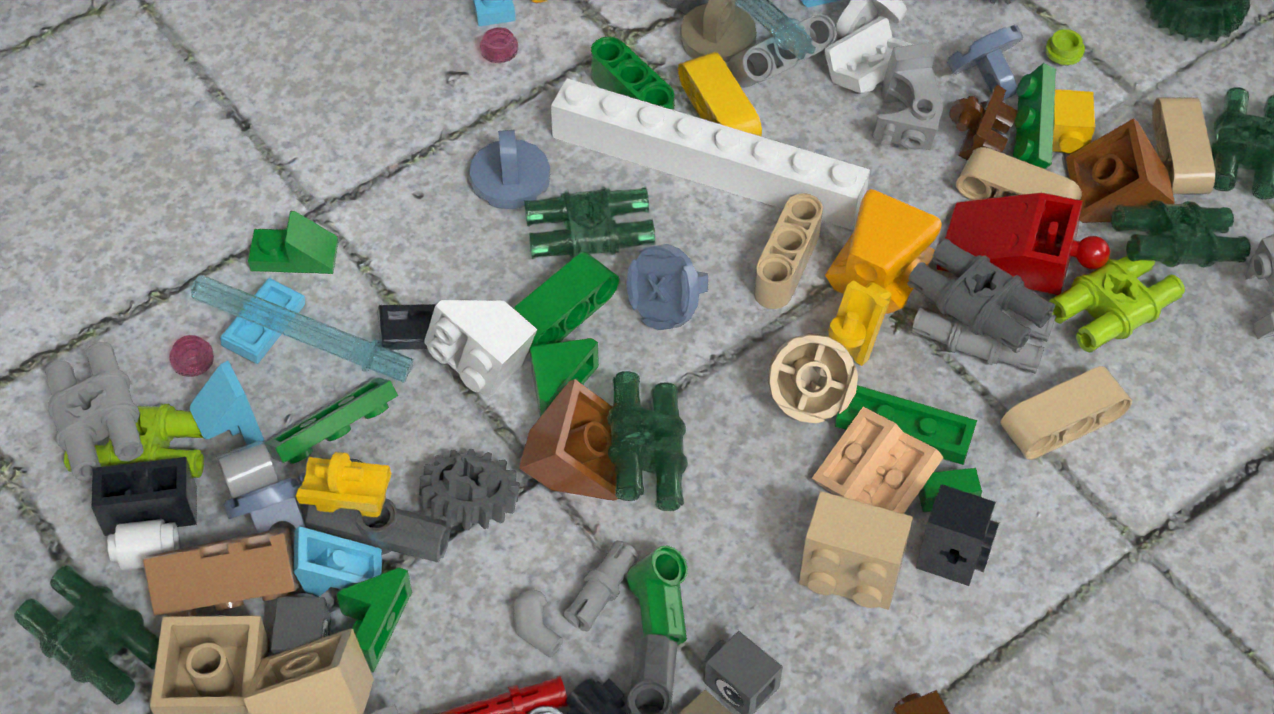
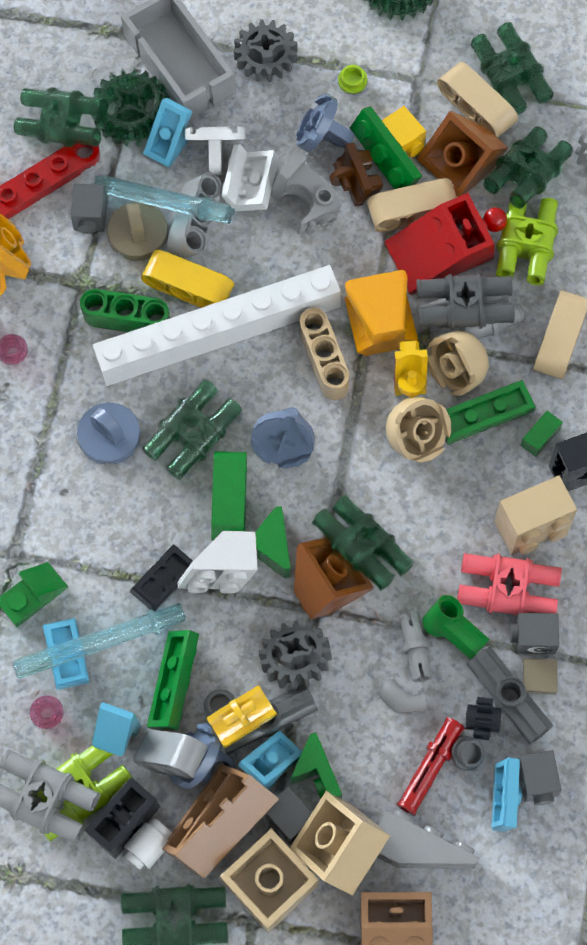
camera: 40 degrees left, 15 degrees up
(764, 585) = (522, 574): none -> coral pin
(877, 464) = (497, 453): light nougat slope -> none
(924, 352) = (458, 361): none -> tan cylinder

